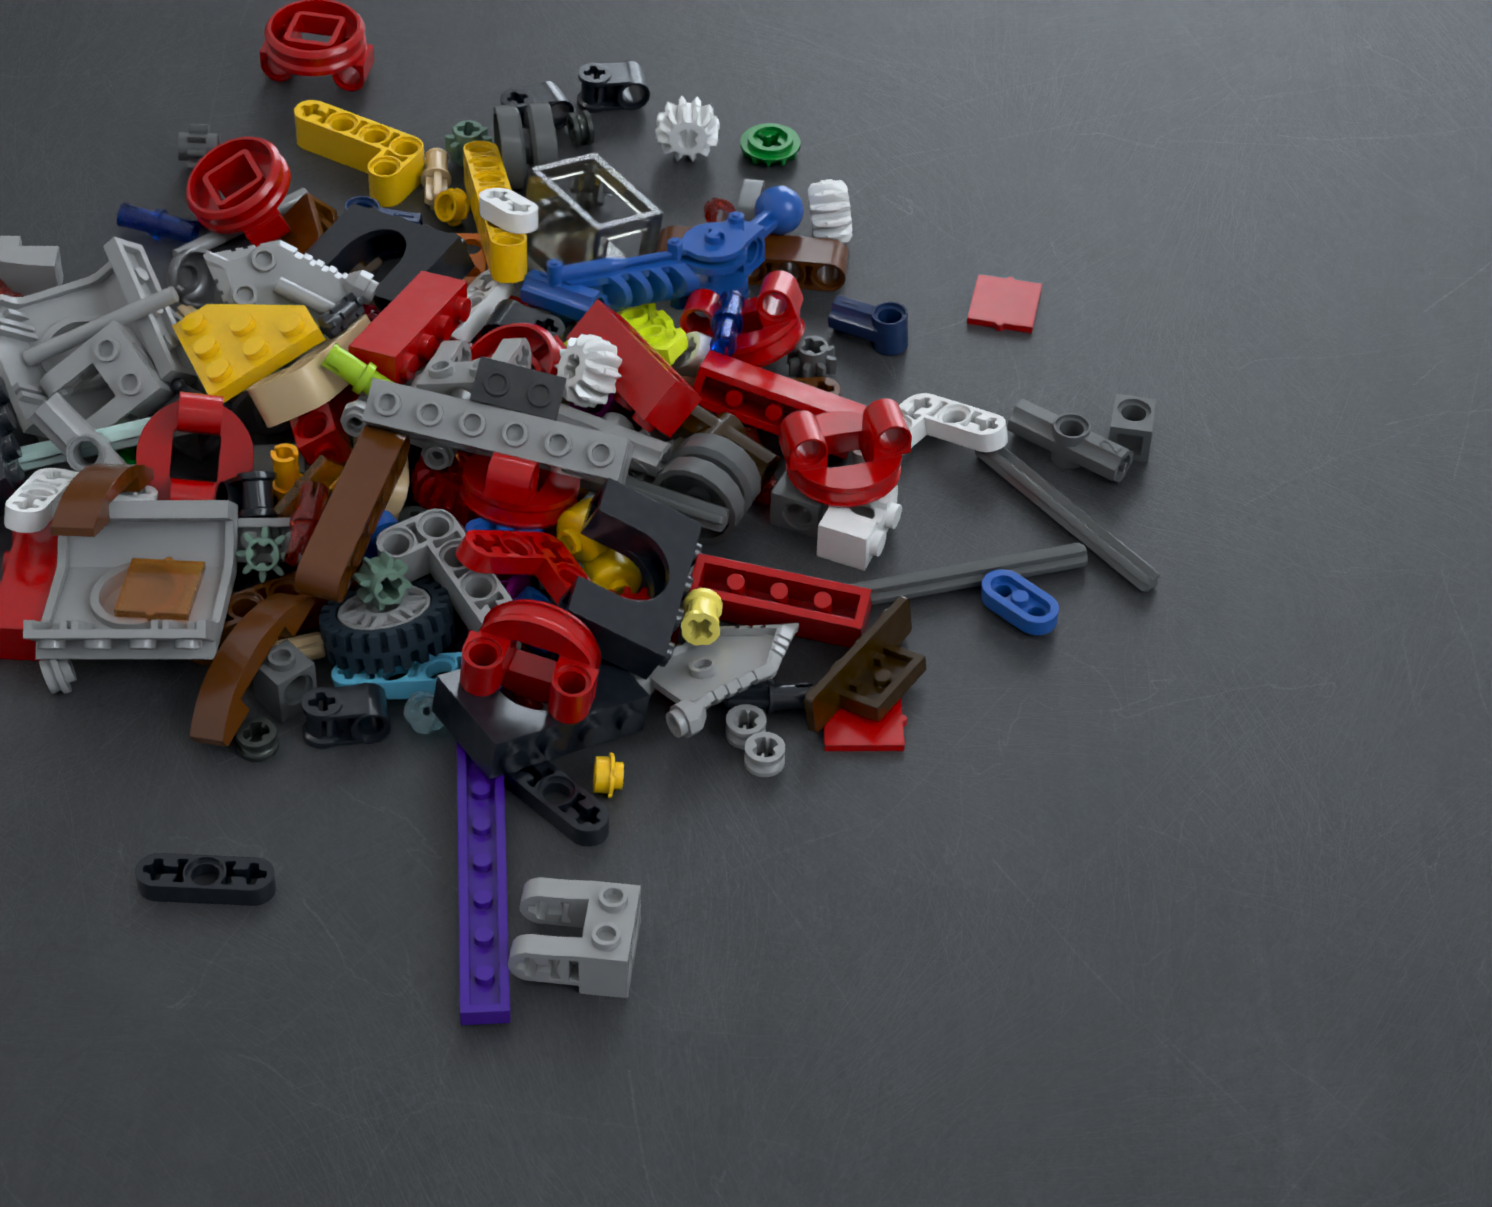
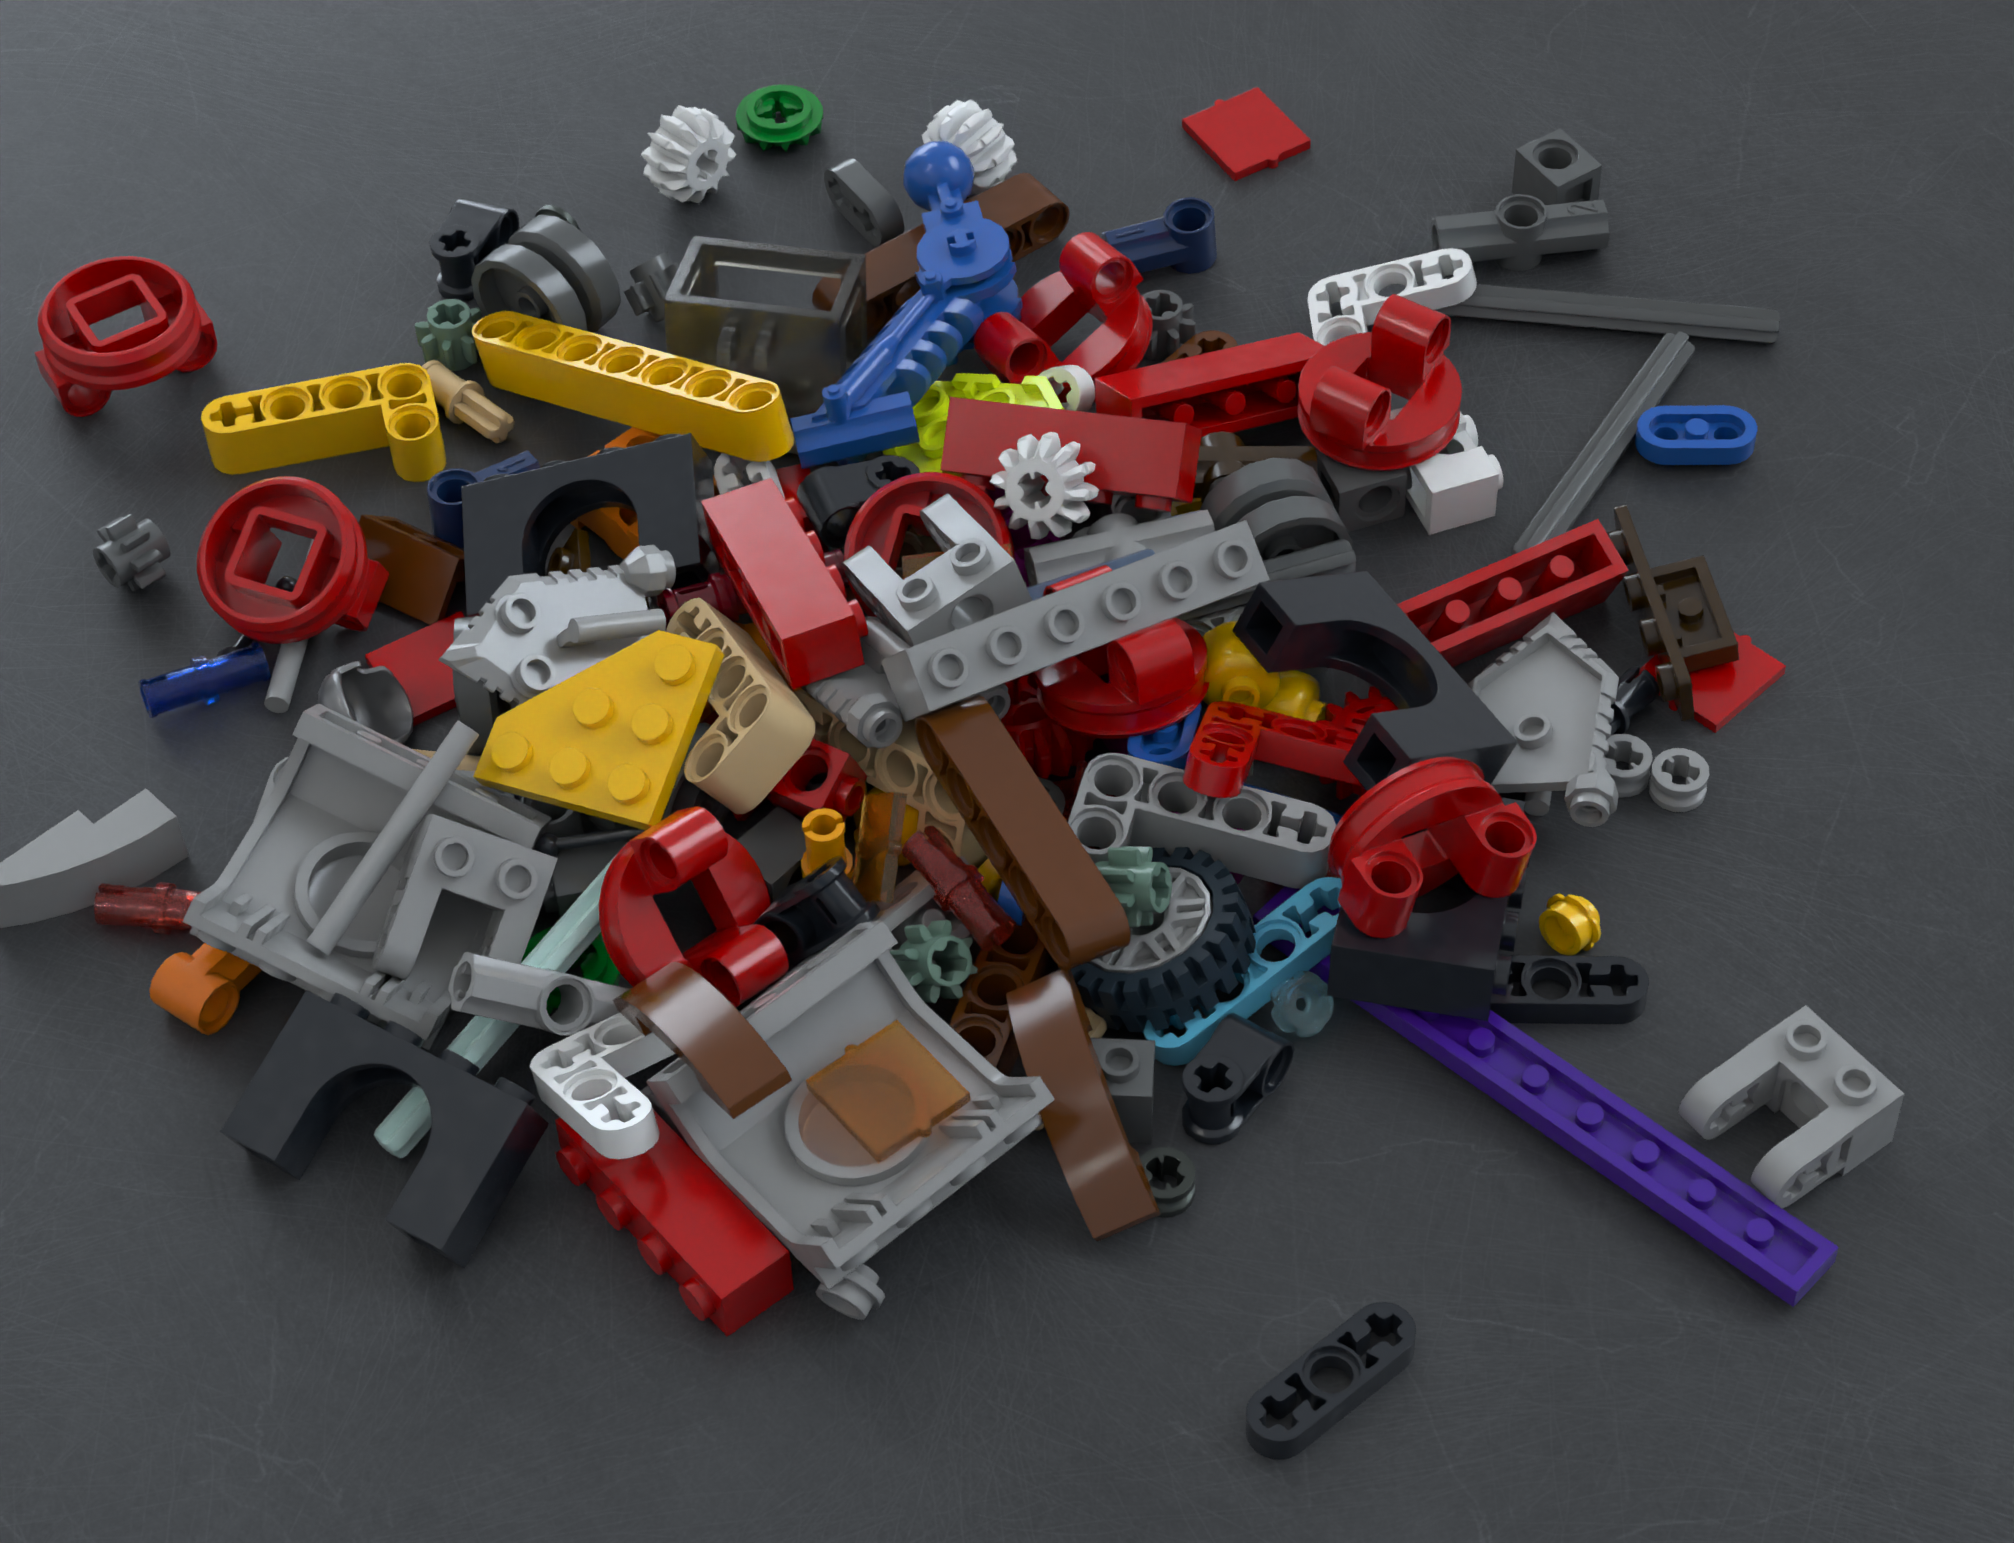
camera: 40 degrees left, 5 degrees up
(341, 315) = (681, 612): black axle -> none
(352, 369) = (828, 667): lime pin -> none
(452, 206) = (531, 433): yellow plate -> none
(508, 210) = (705, 364): white beam -> none
(518, 388) = (1064, 552): black brick -> none
(614, 86) = (525, 162): black piece -> none
(701, 616) = (1477, 671): light yellow bush -> none
(711, 210) = (857, 227): clear red pin -> none
(727, 322) = (1070, 336): clear blue pin -> none

